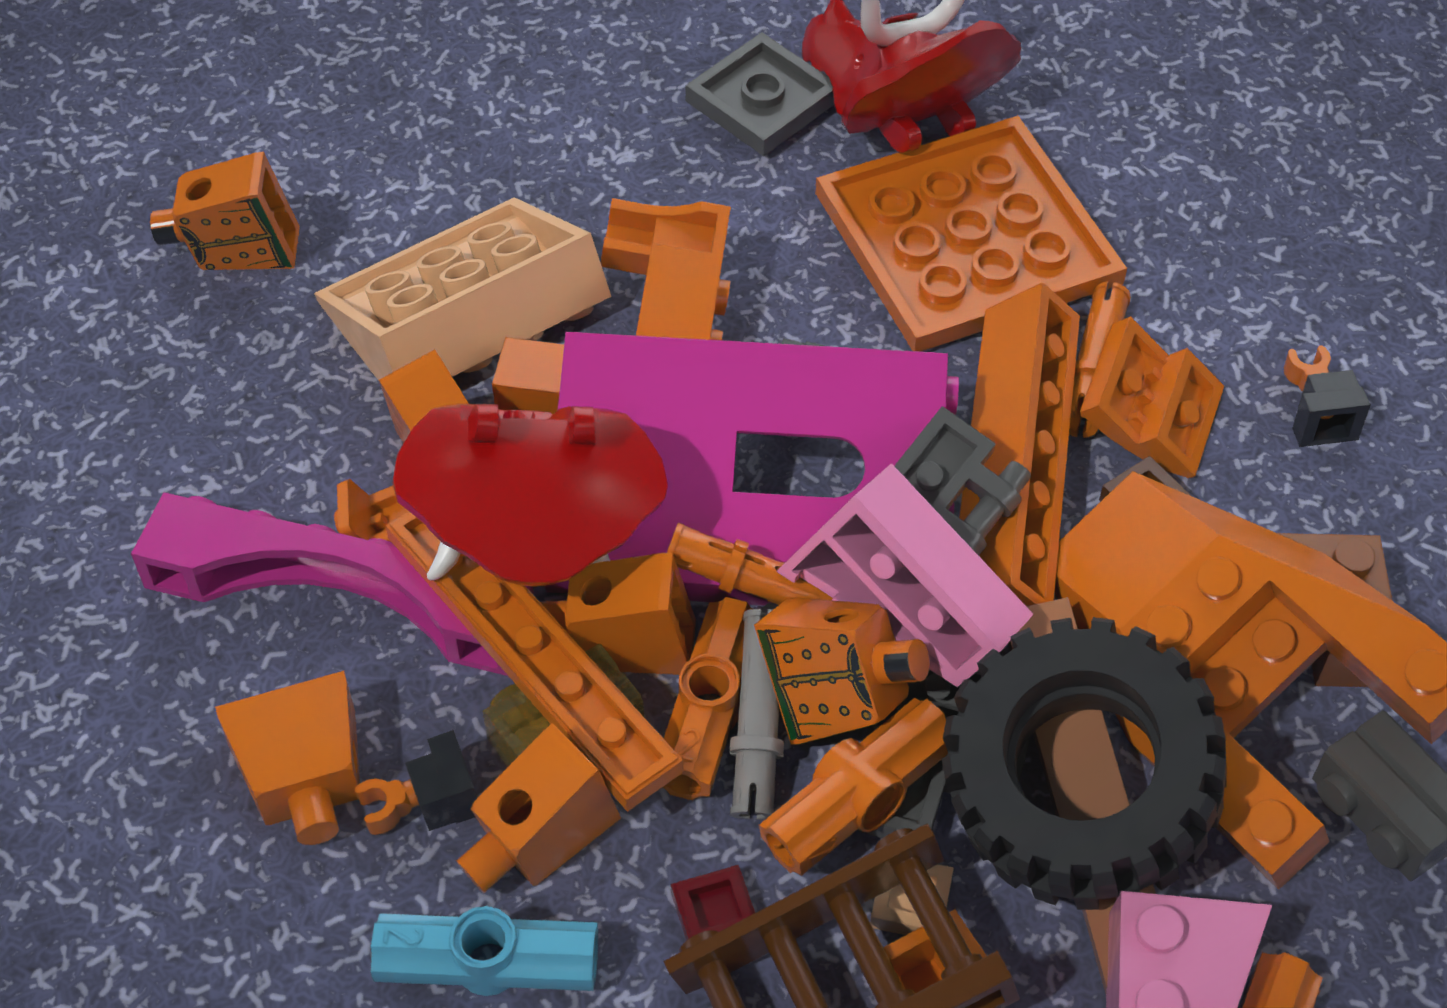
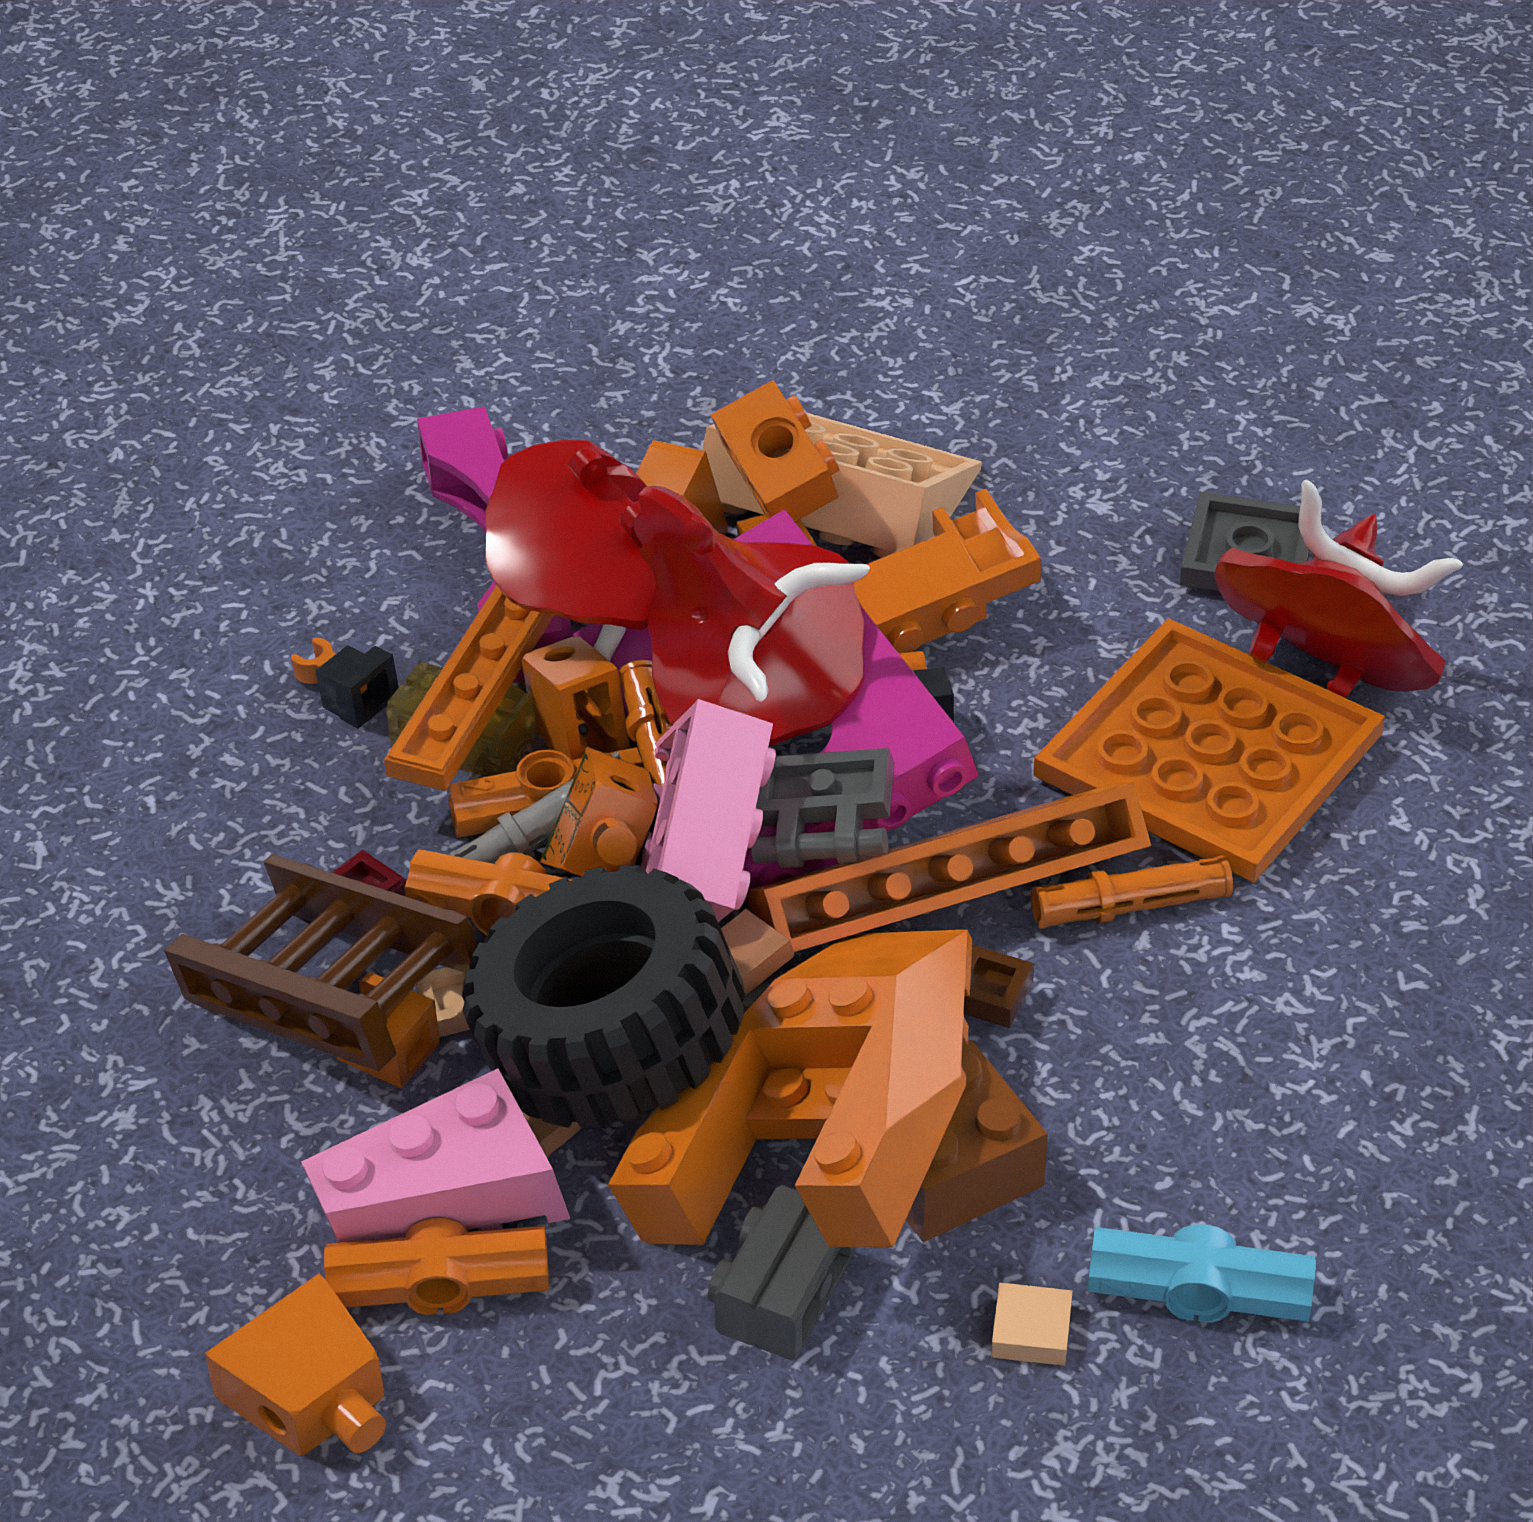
camera: 60 degrees right, 10 degrees down
(231, 217) = (789, 315): orange torso -> none
(297, 753) = (326, 593): orange torso -> none
(439, 947) = (229, 772): medium azure piece -> none
(447, 319) = (760, 426): none -> orange brick
(538, 813) = (348, 733): orange torso -> none
(750, 426) = (748, 621): none -> red animal
(1152, 399) = (1111, 945): orange slope -> none
(1331, 402) = (1224, 1072): black piece -> none

